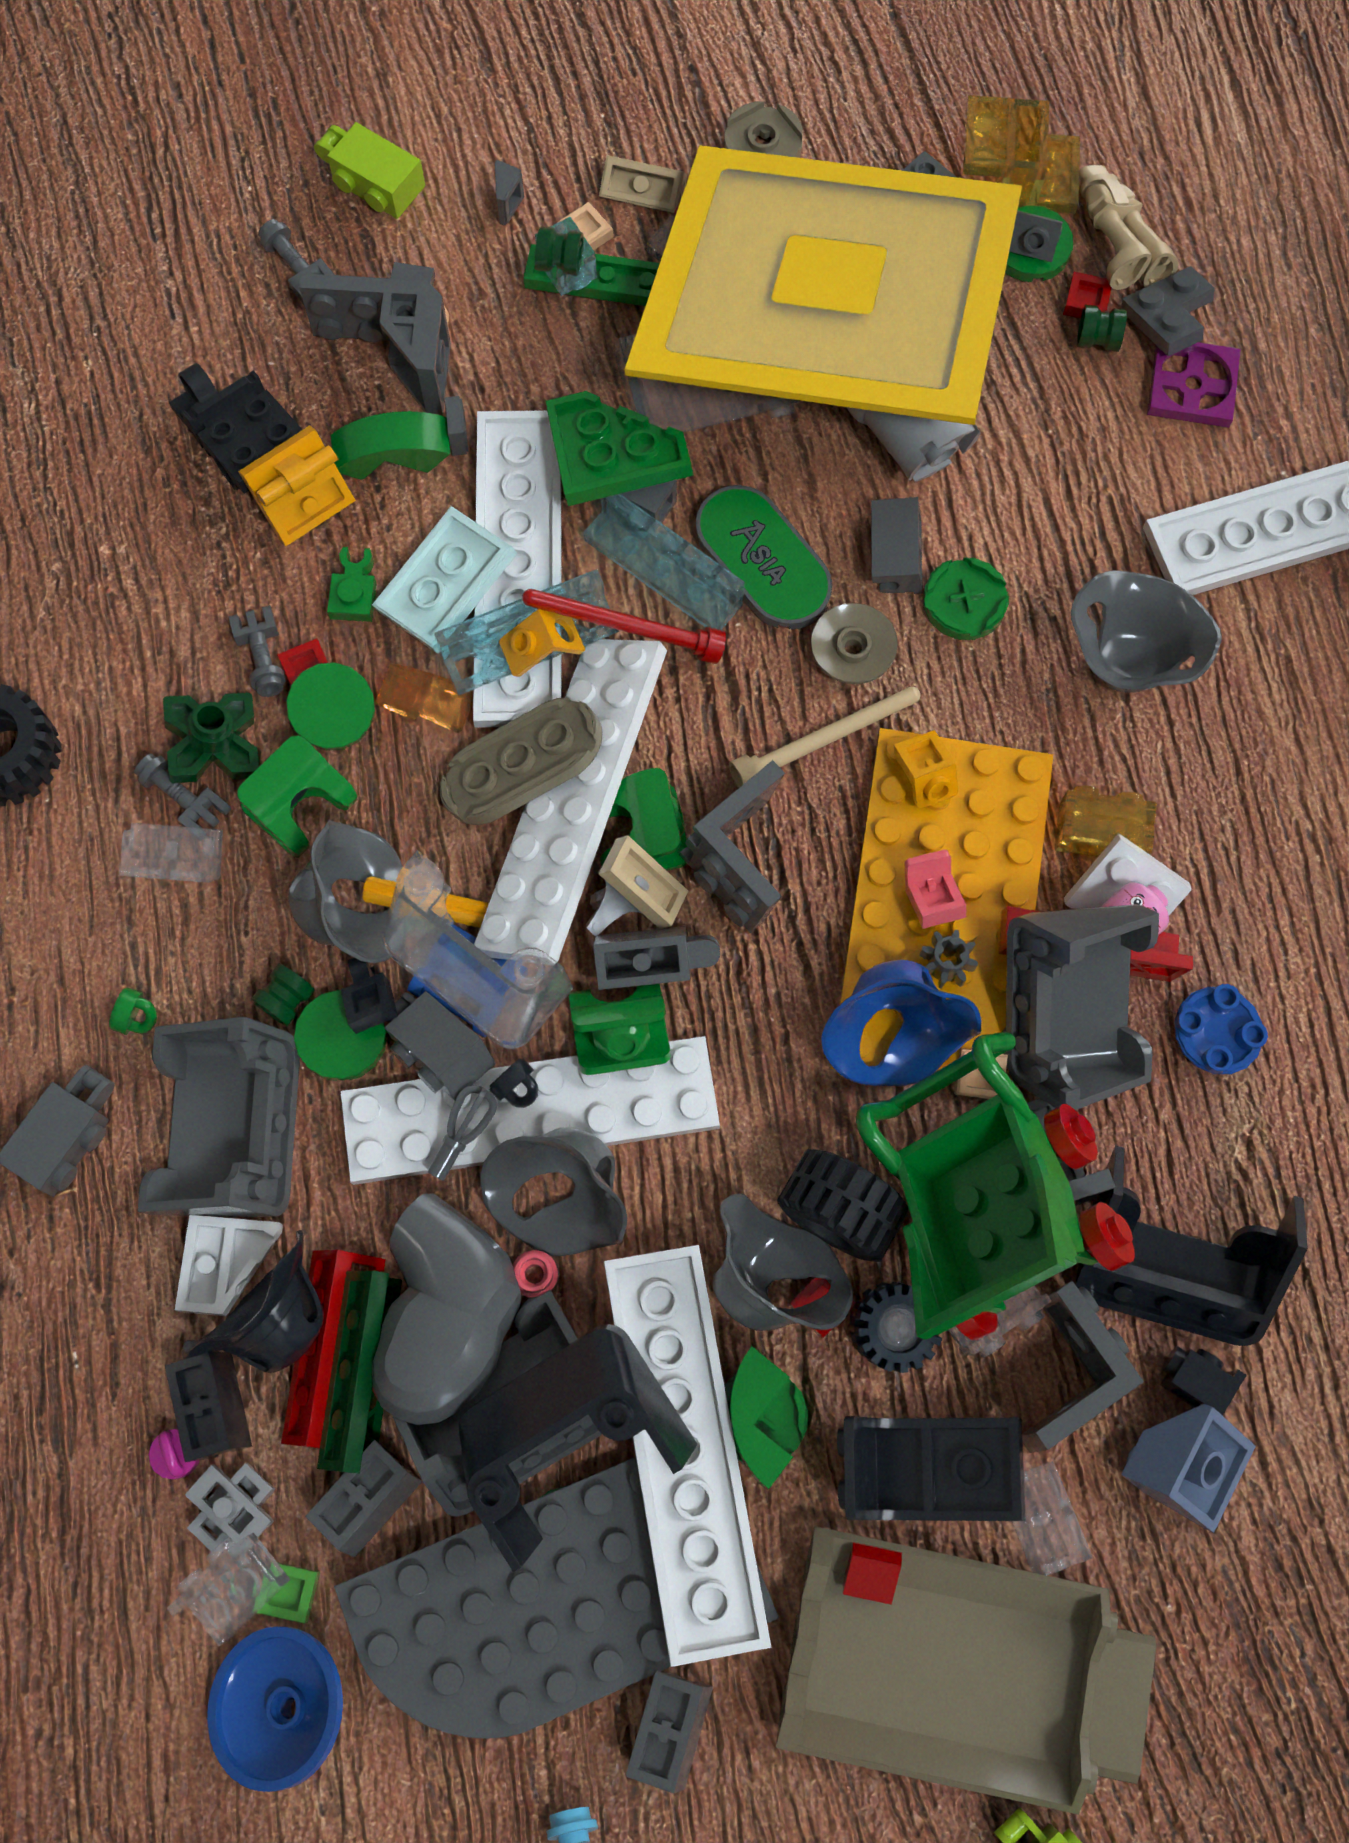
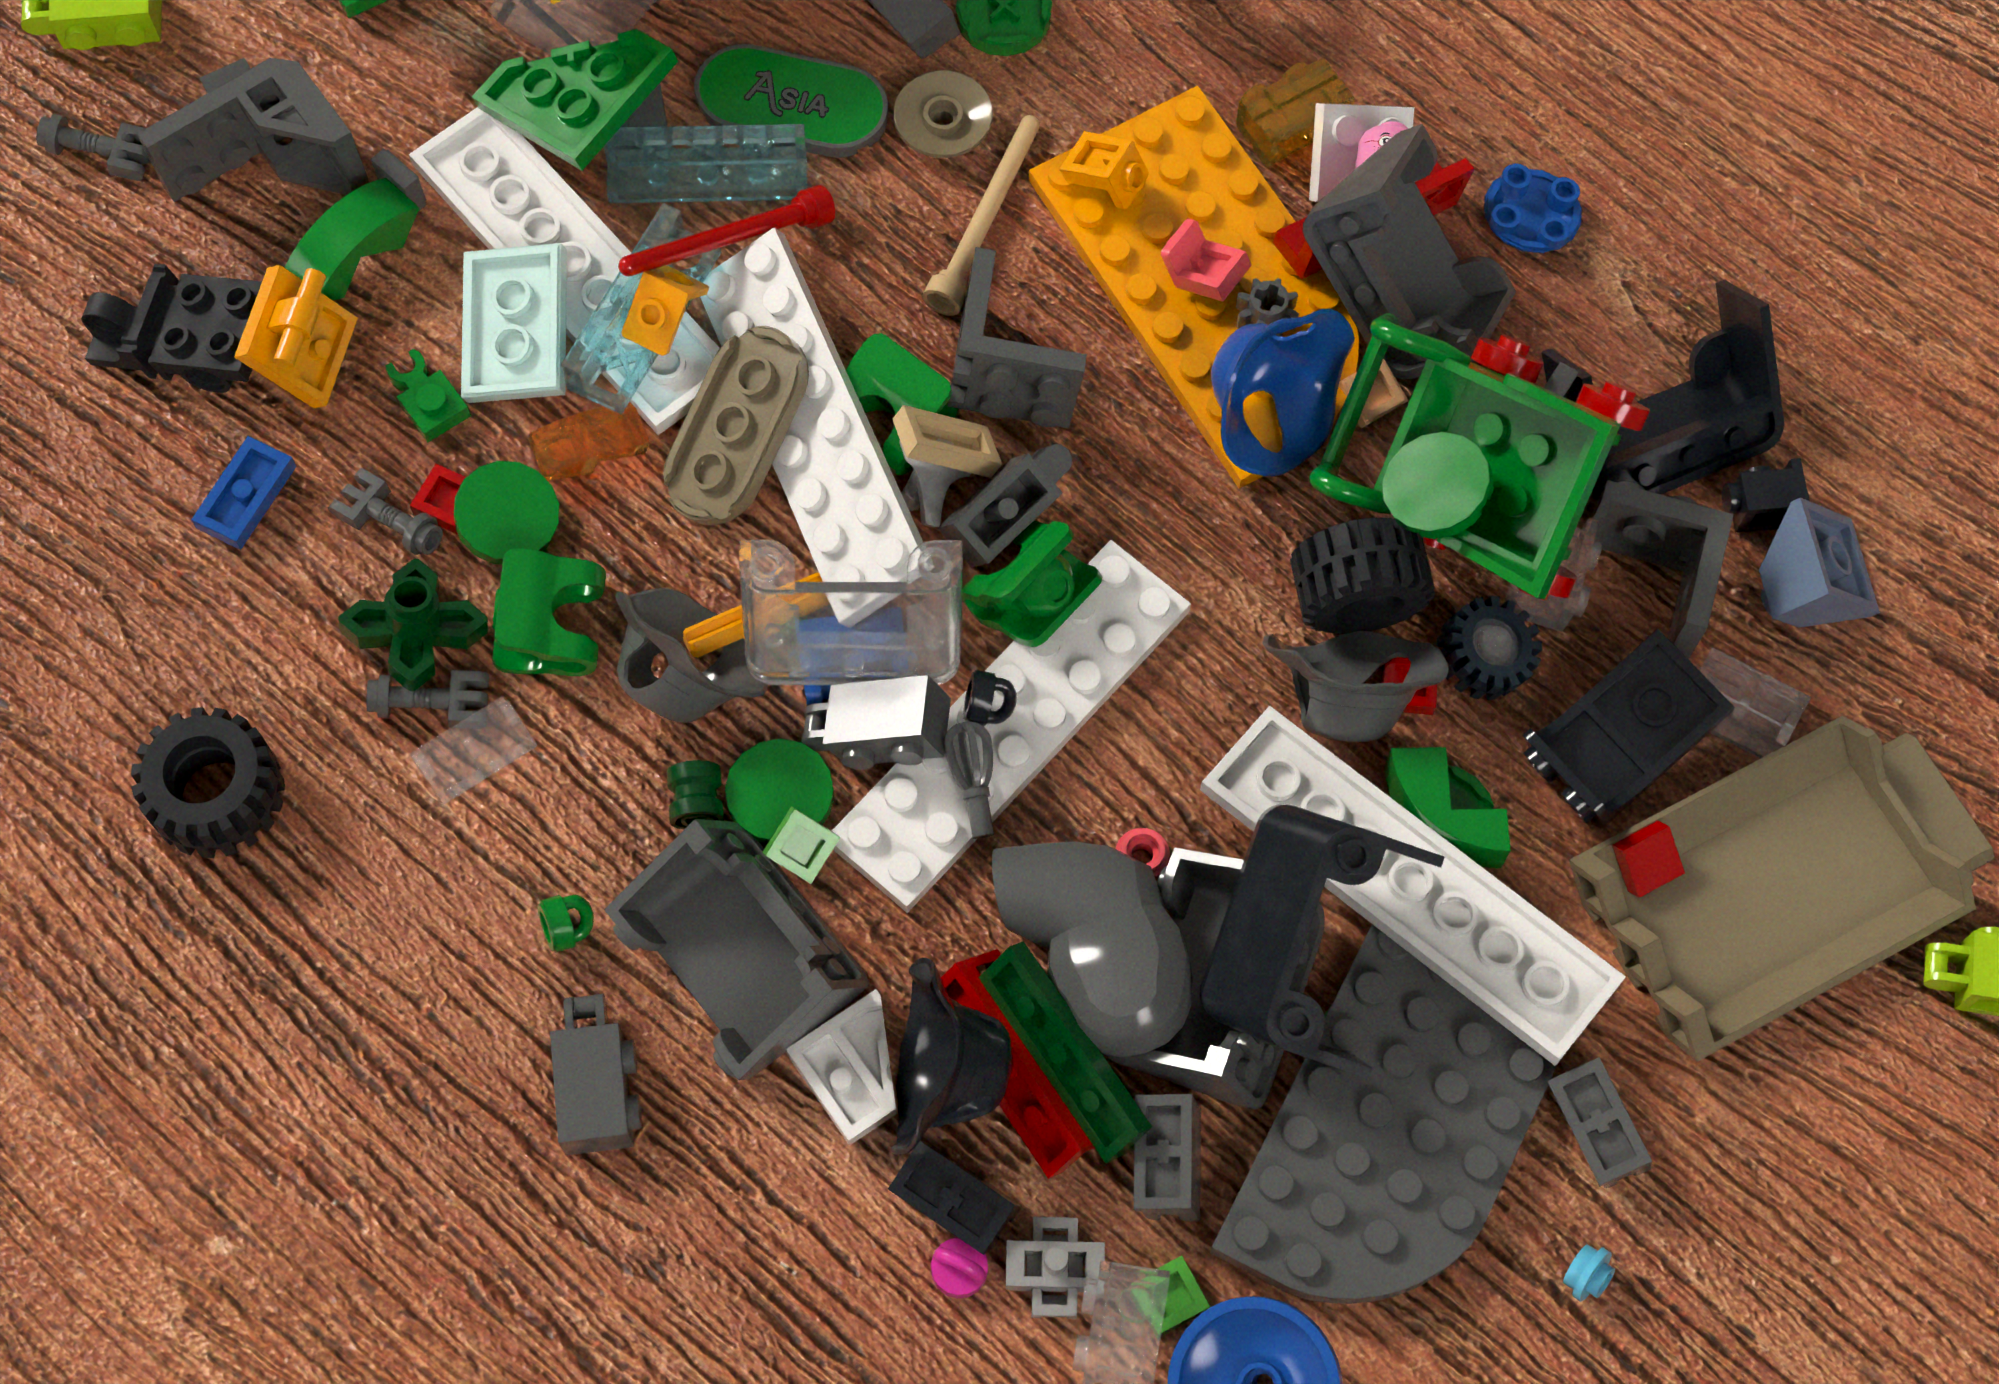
camera: 40 degrees left, 5 degrees down
(185, 567) = (244, 492): none -> blue plate
(318, 1084) = (801, 845): none -> tile
(369, 998) = (782, 733): black plate -> none
(582, 1222) = (1146, 754): dark grey piece -> none
(932, 1190) = (1437, 485): none -> tile

